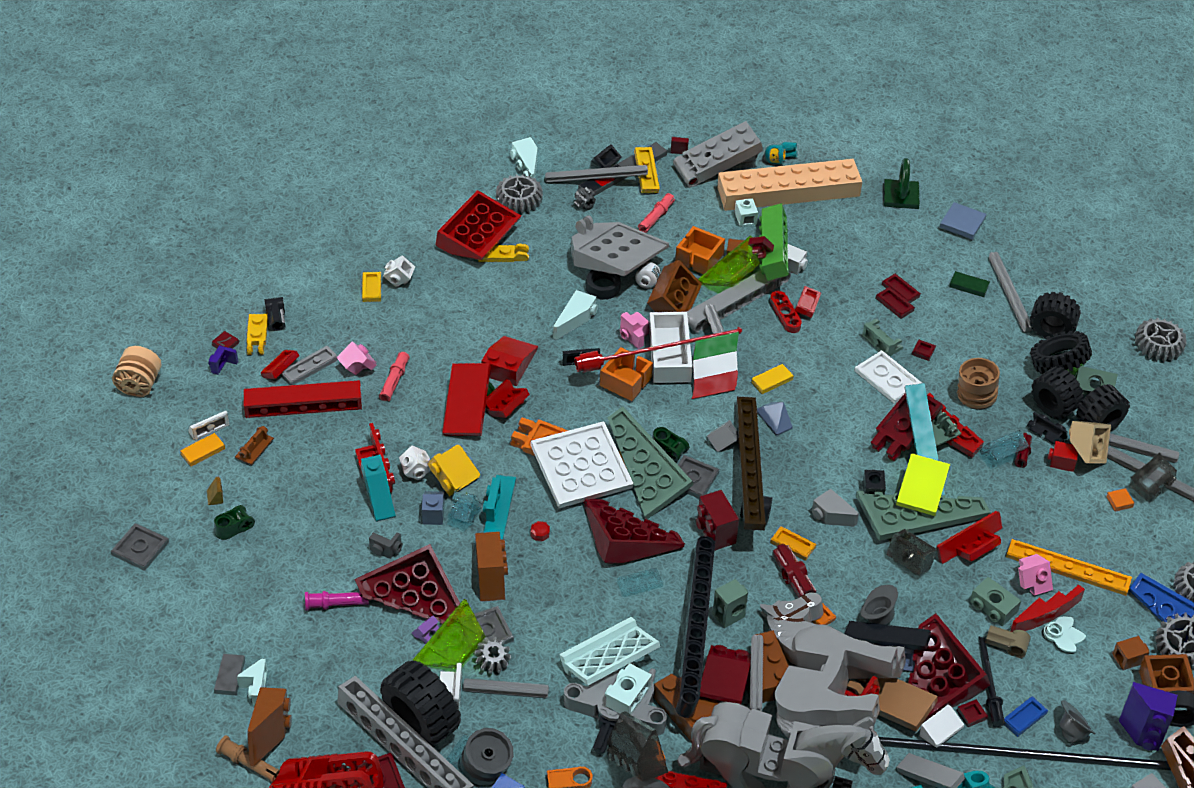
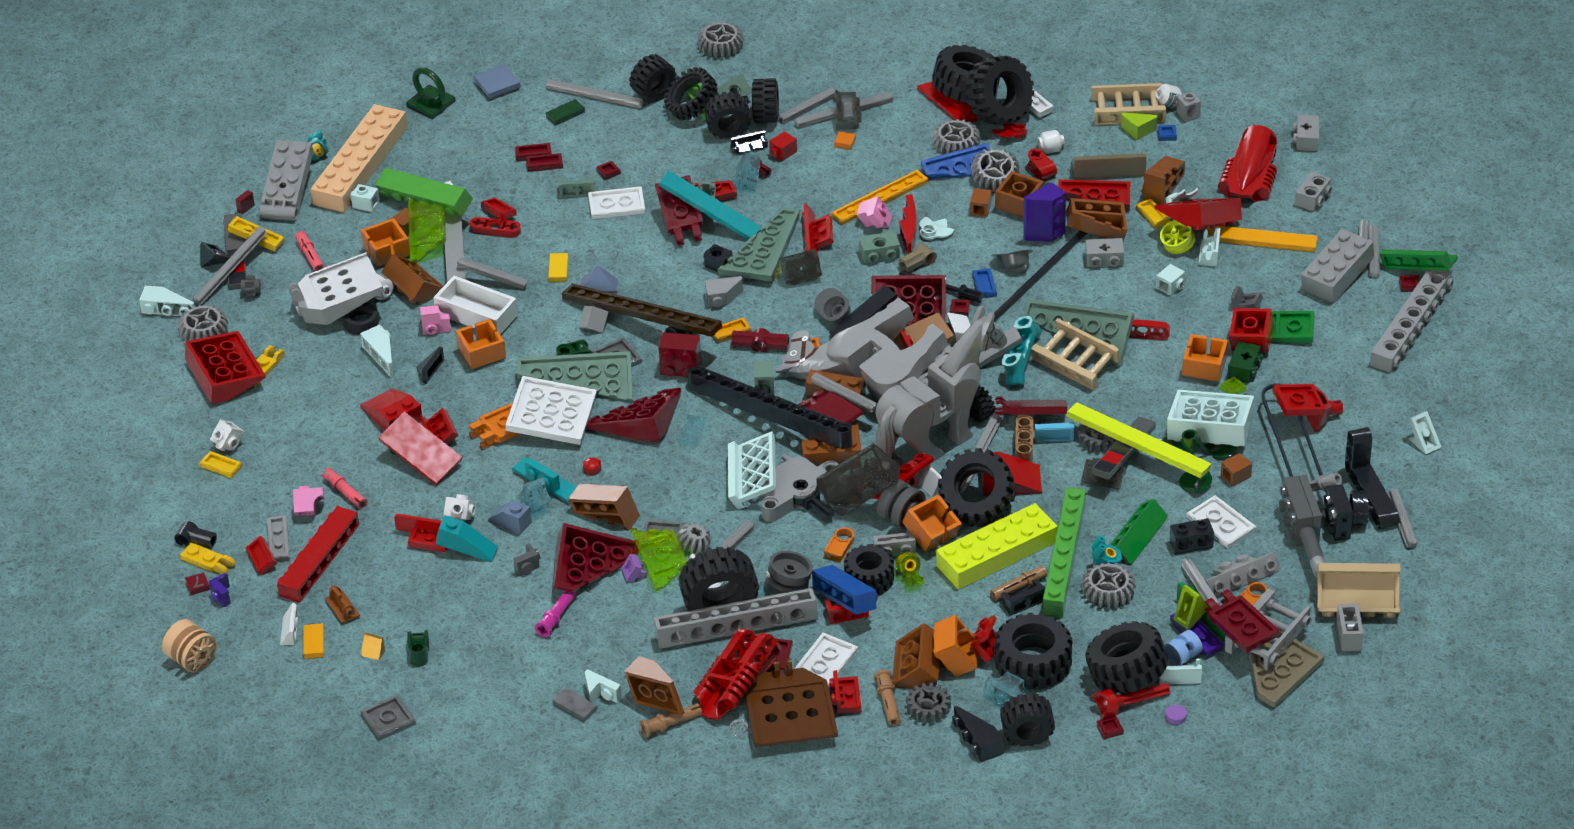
camera: 55 degrees left, 5 degrees down
(453, 469) = (488, 488): yellow bracket -> none
(627, 700) = (799, 467): light aqua brick -> none
(713, 362) = (512, 281): flag -> none
(760, 246) = (434, 194): dark red tile -> none
(923, 484) = (747, 228): neon yellow tile -> none
(978, 383) = (676, 152): medium nougat wheel -> none
(1090, 440) = (785, 120): tan slope -> none

